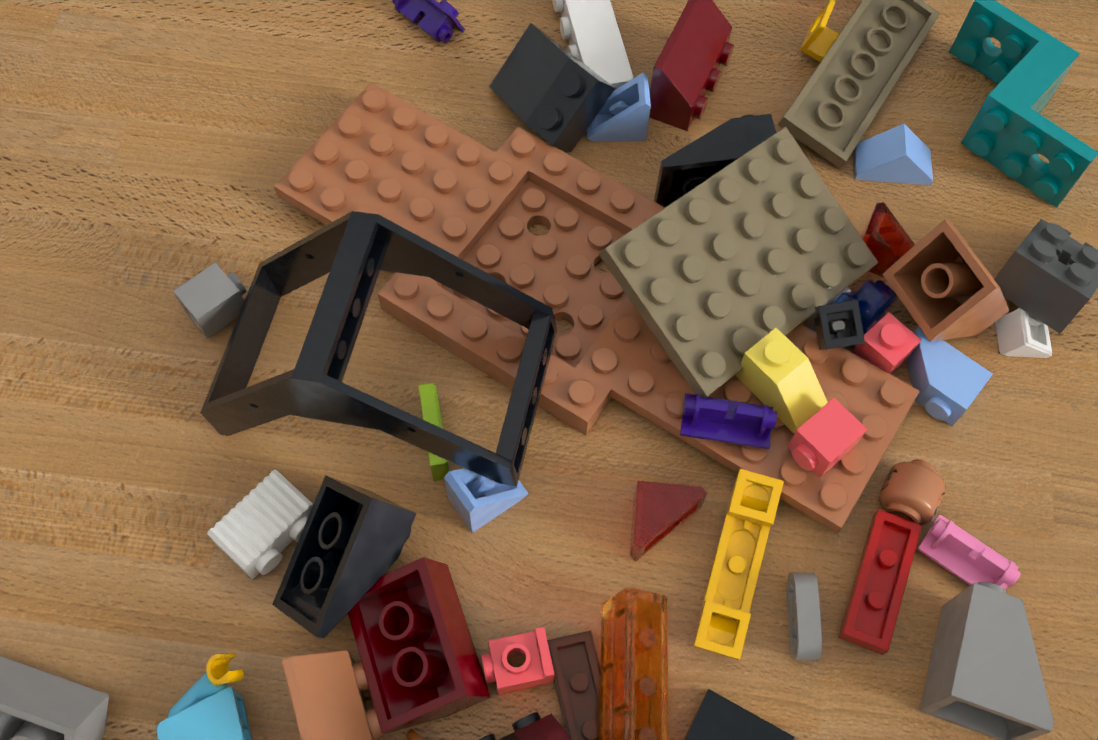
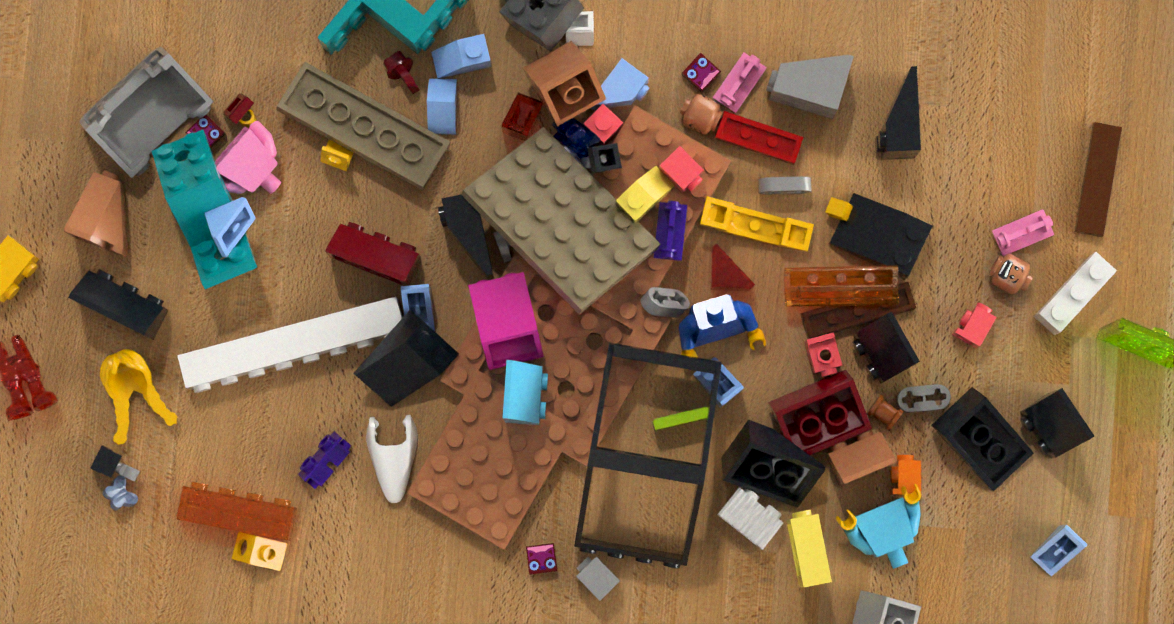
camera: 90 degrees left, 20 degrees up
(188, 605) = (808, 549): none -> light yellow window
(257, 241) = (541, 558): none -> tile
(416, 81) = (393, 462): none -> white animal
(485, 180) = (523, 393): none -> medium azure slope
(583, 489) = (718, 320): none -> blue torso
(593, 186) = (505, 320): none -> dark pink slope
(615, 414) = (665, 302): none -> light grey beam
(766, 706) = (839, 209): none -> yellow piece
(939, 116) = (399, 67): none -> dark red piece
(969, 187) = (461, 56): none -> light blue slope
(977, 500) = (701, 72): none -> tile

